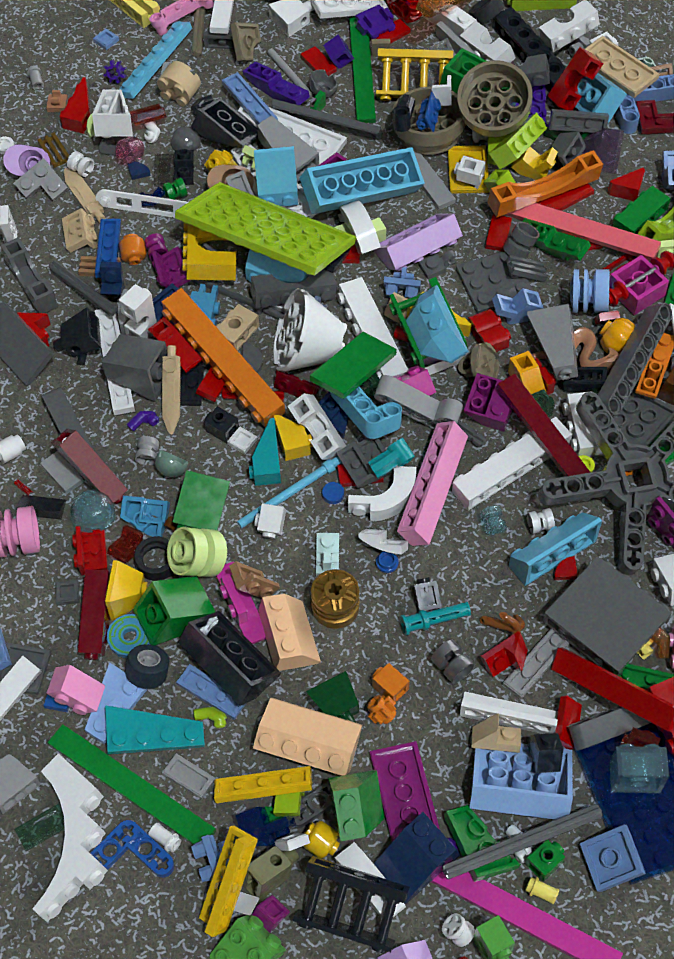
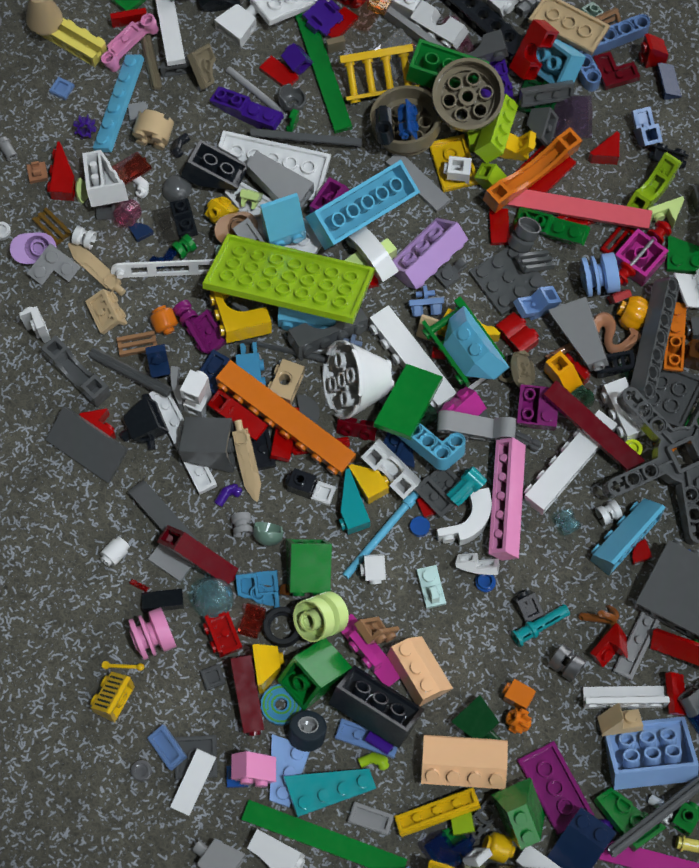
camera: 15 degrees left, 10 degrees up
(108, 243) = (139, 321): blue tile -> none
(222, 697) = (379, 742): none -> dark purple piece
(247, 98) = (226, 133): medium blue tile -> none
(332, 609) = (452, 641): pearl gold wheel -> none
(443, 92) = (415, 94): white panel -> none
(545, 752) = (665, 726): black slope -> none
(647, 206) = (625, 178): green brick -> none

